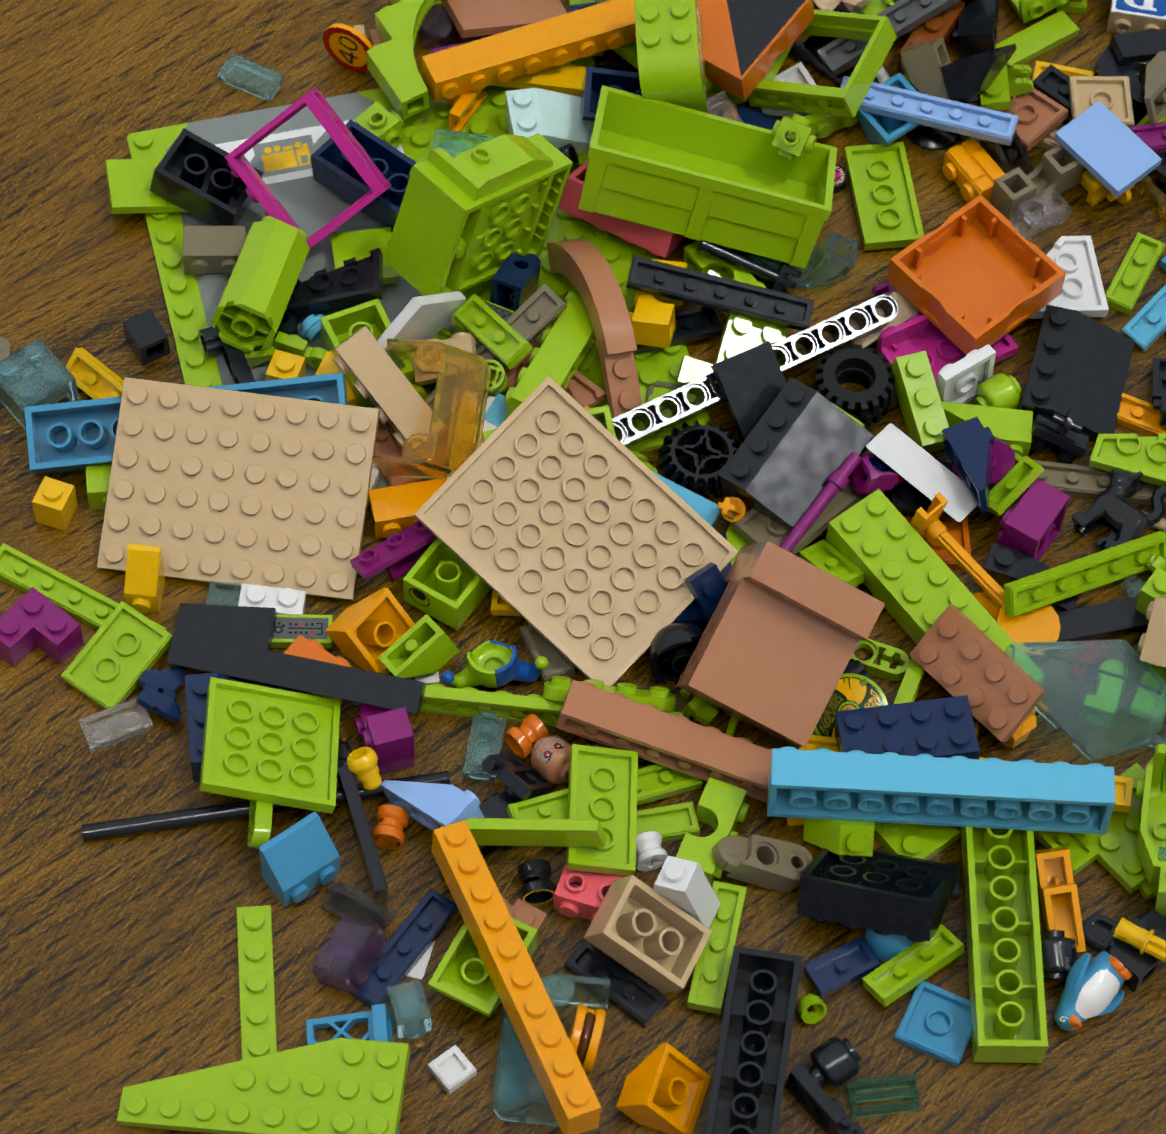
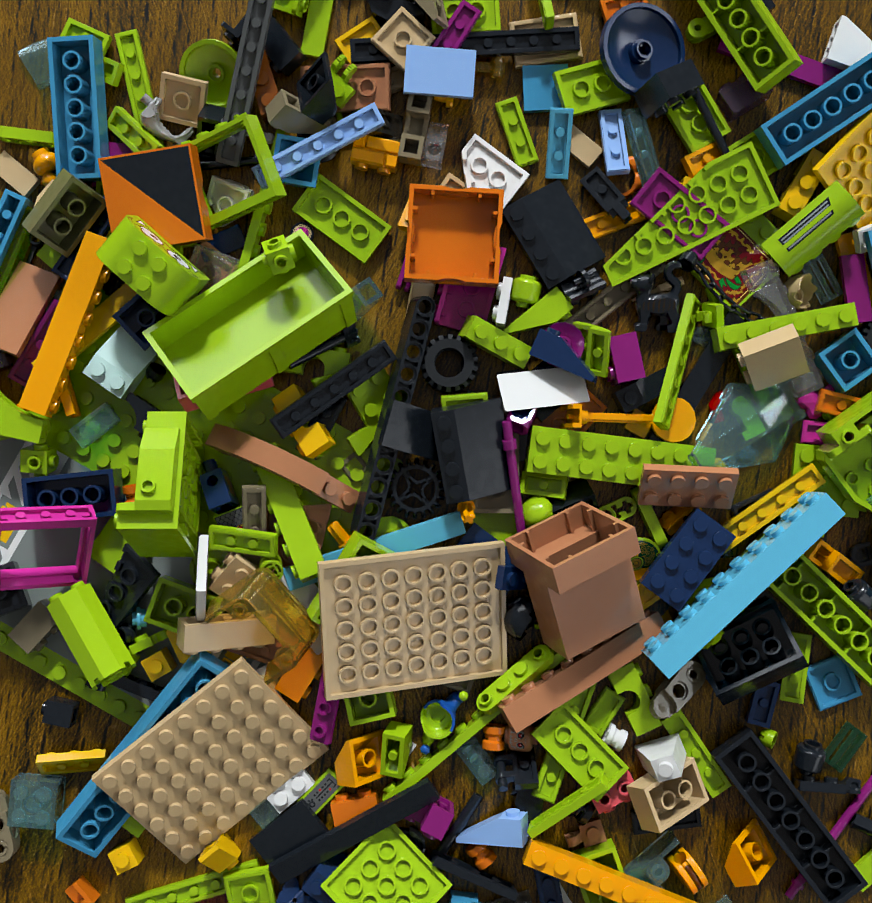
camera: 45 degrees left, 30 degrees up
(364, 765) = (443, 849): yellow piece -> none

